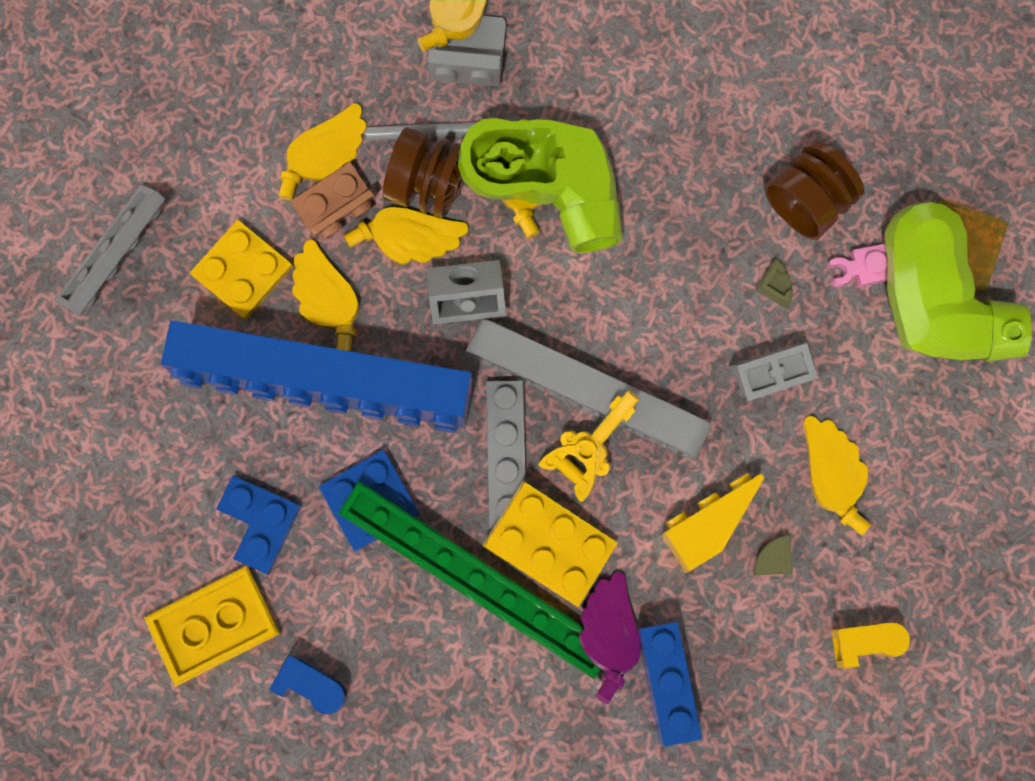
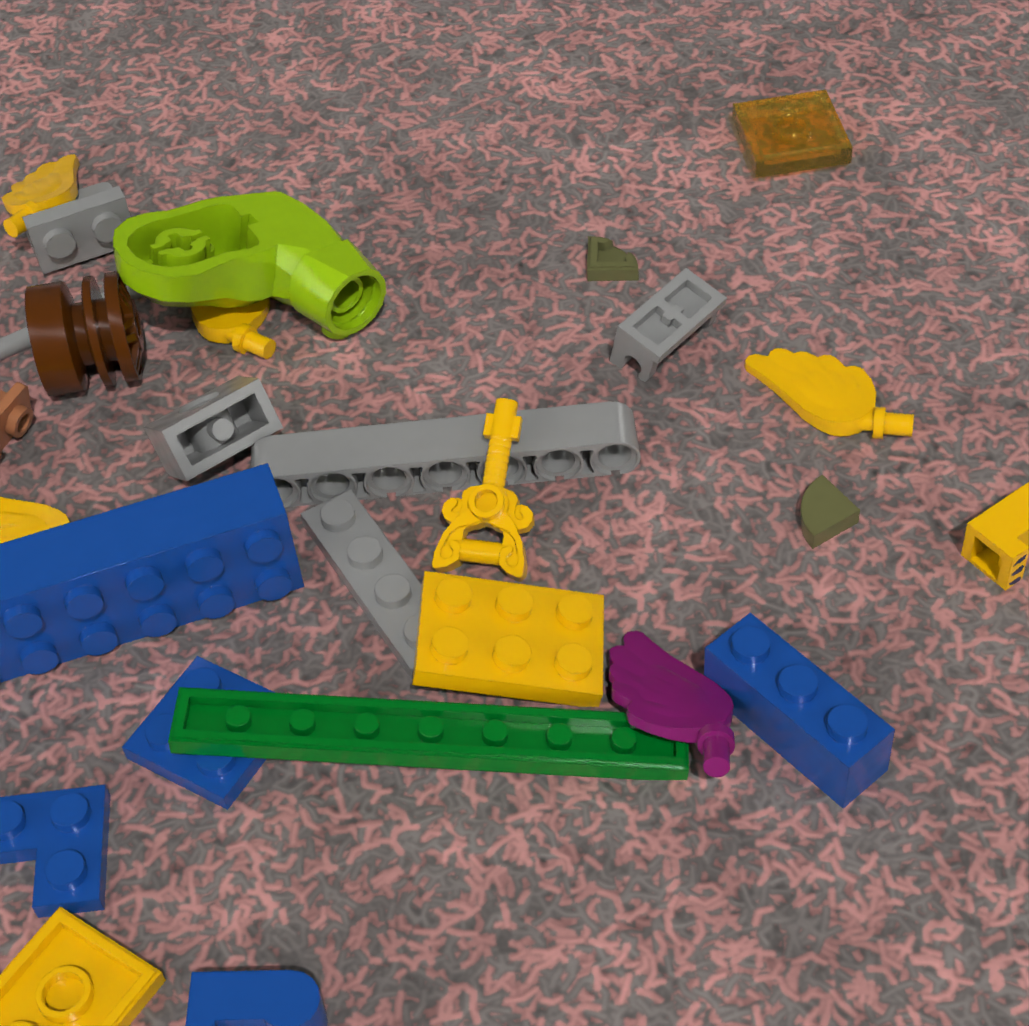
camera: 25 degrees left, 30 degrees down
(409, 235) = (96, 424): yellow animal -> none
(708, 531) = (709, 521): yellow slope -> none
(814, 190) = (584, 145): reddish brown wheel -> none
(867, 266) = (701, 197): bright pink plate -> none
(935, 292) = (804, 172): lime piece -> none

